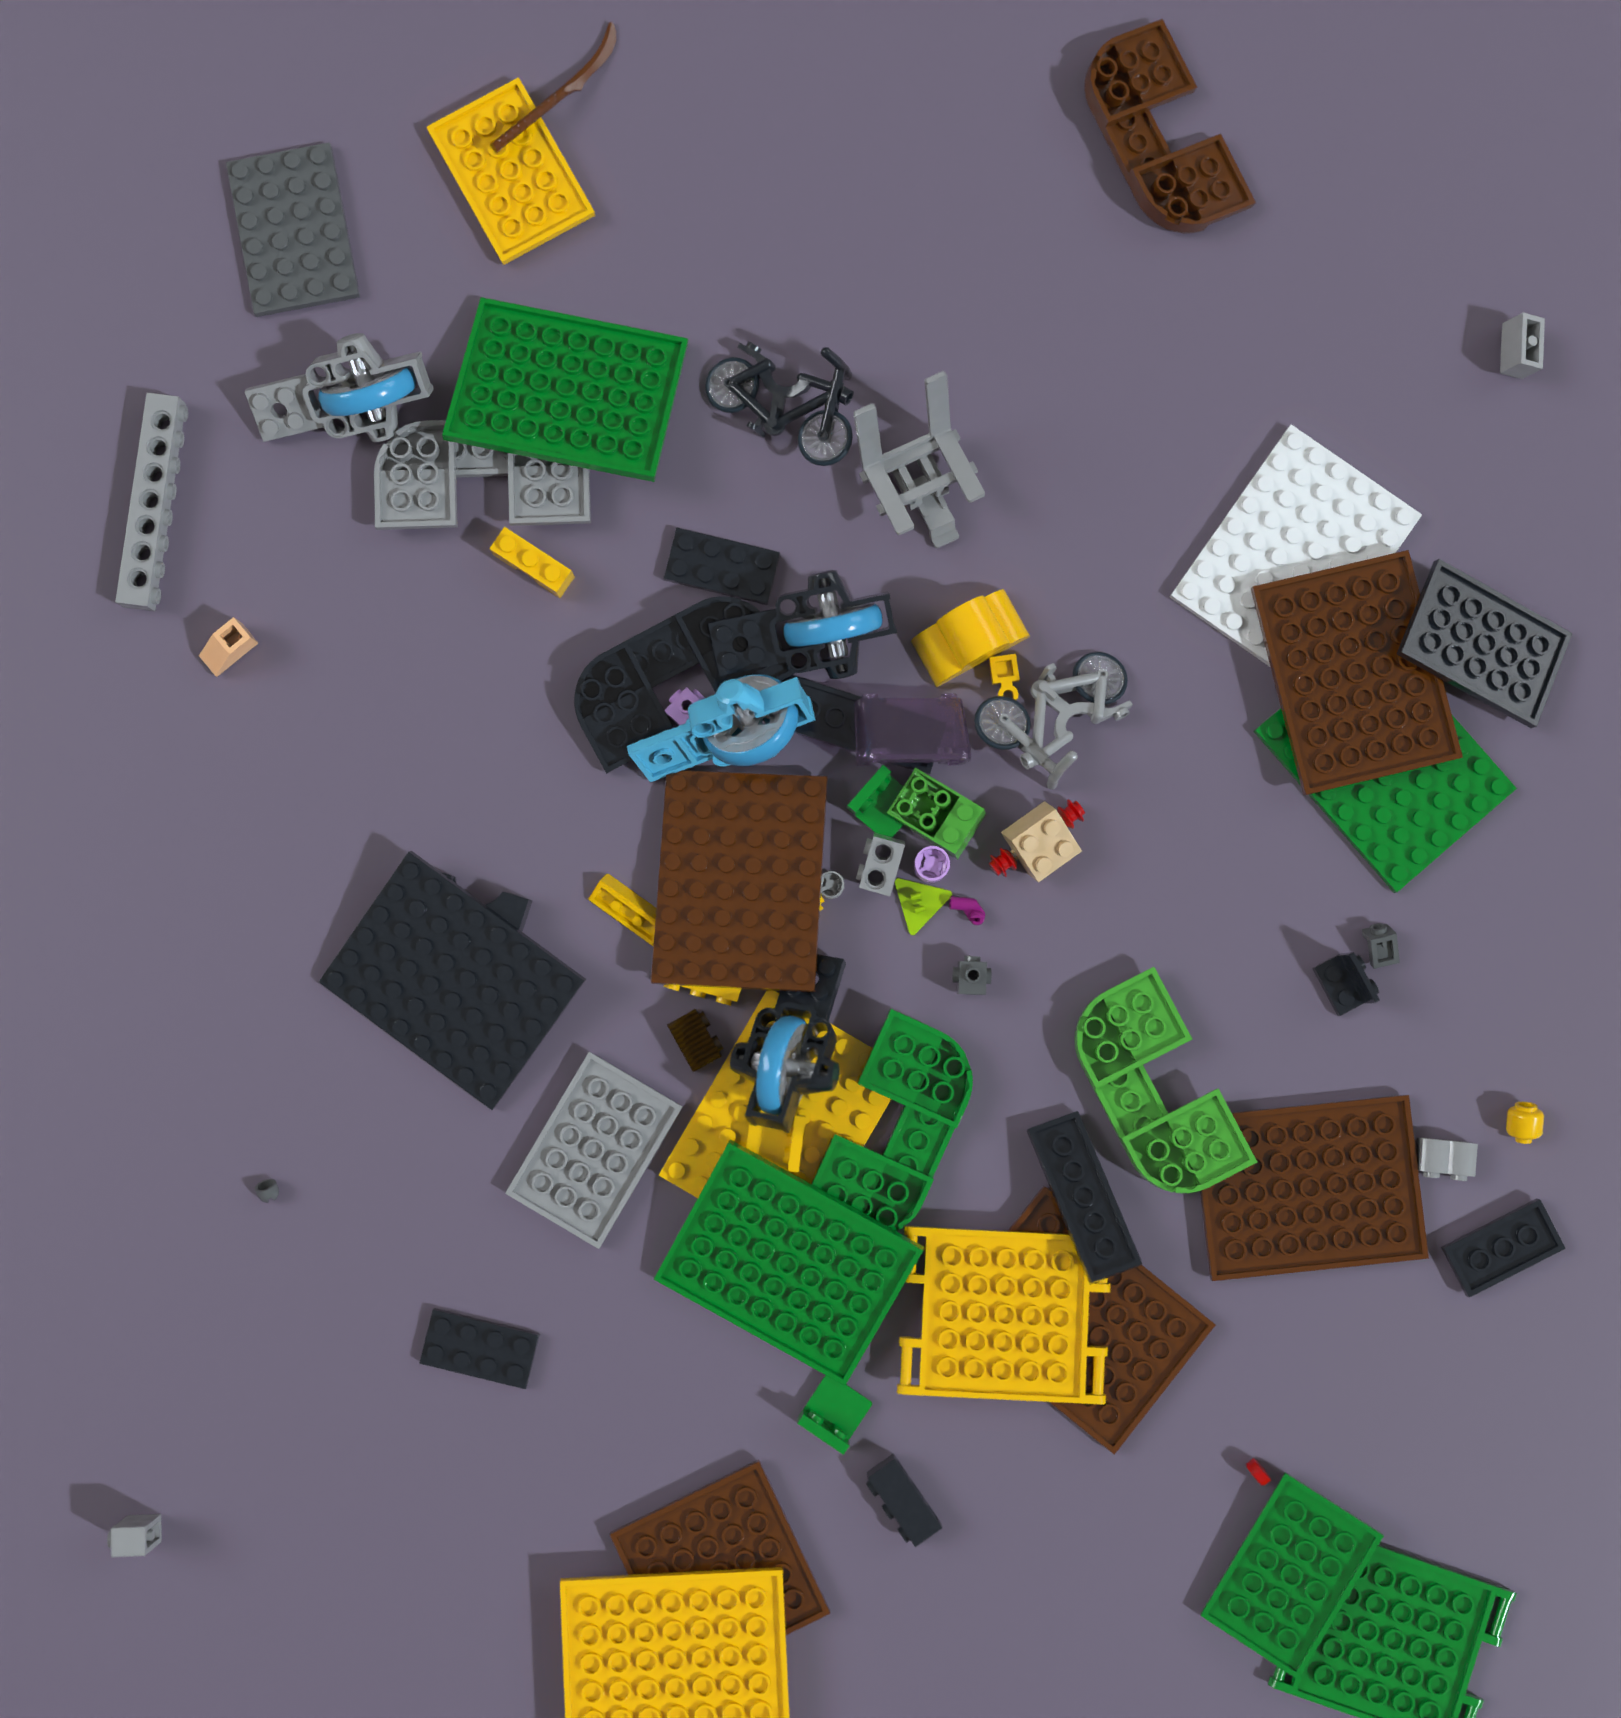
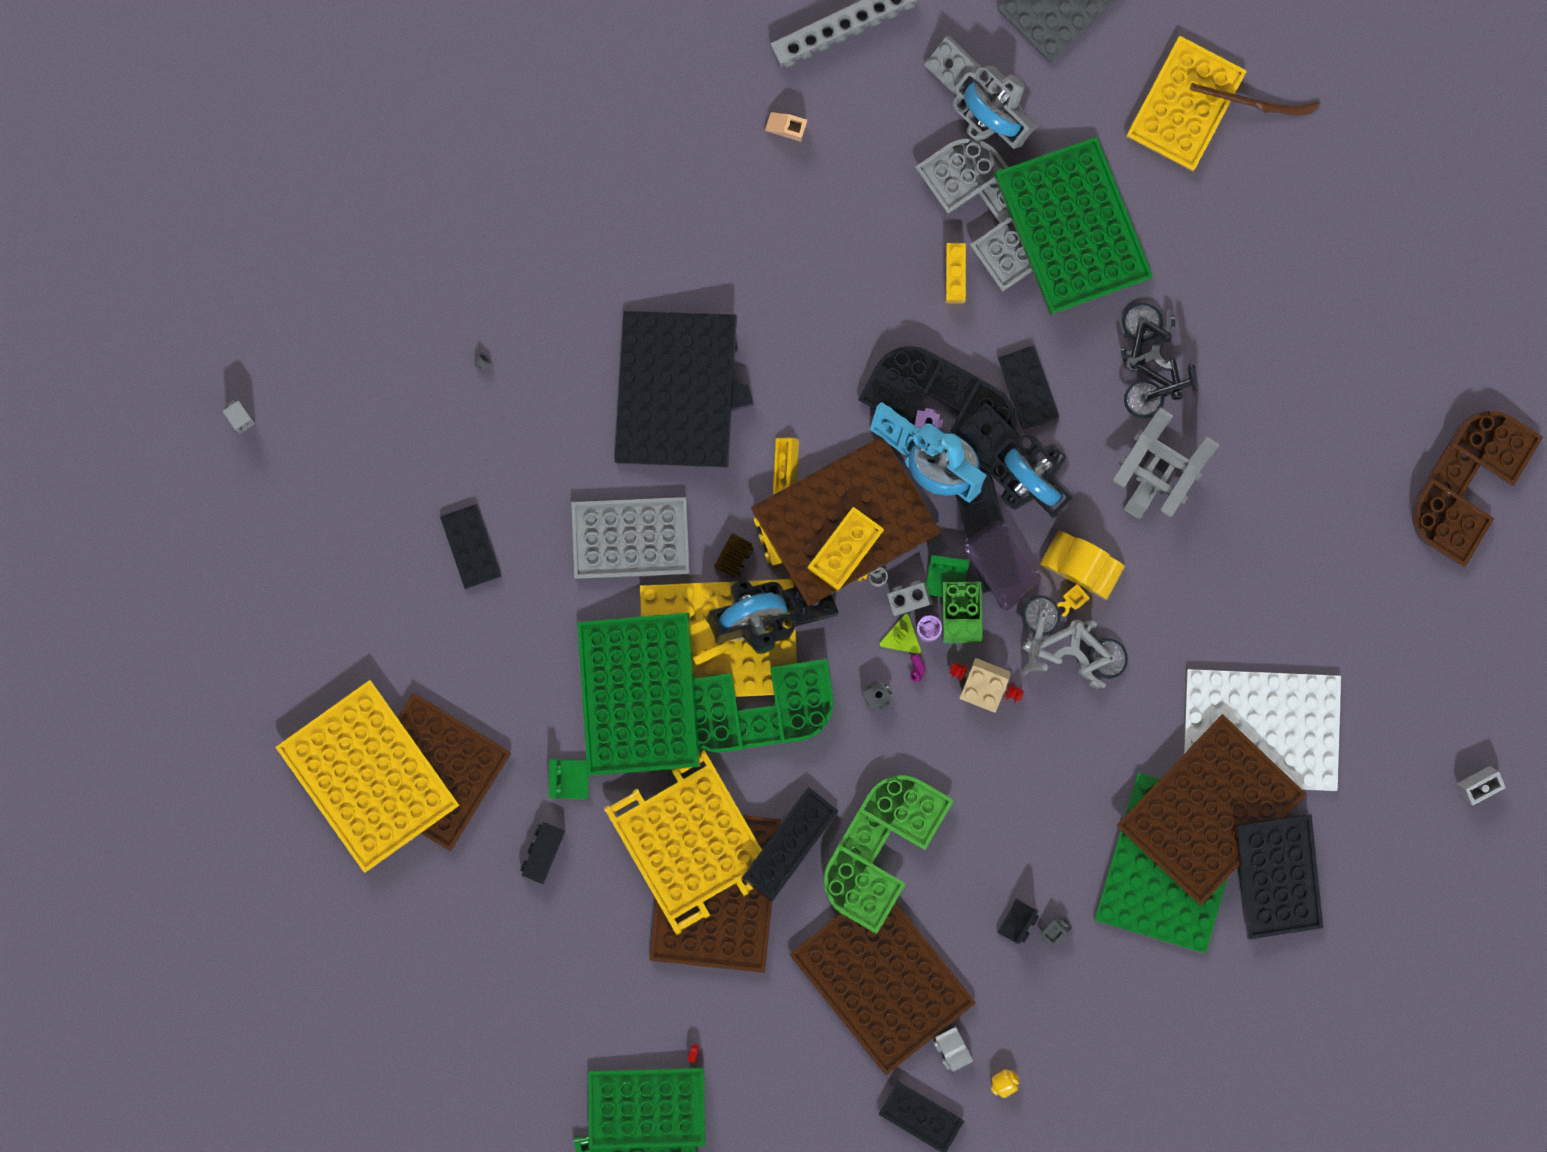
camera: 60 degrees right, 0 degrees up
(775, 902) = (845, 548): none -> yellow plate

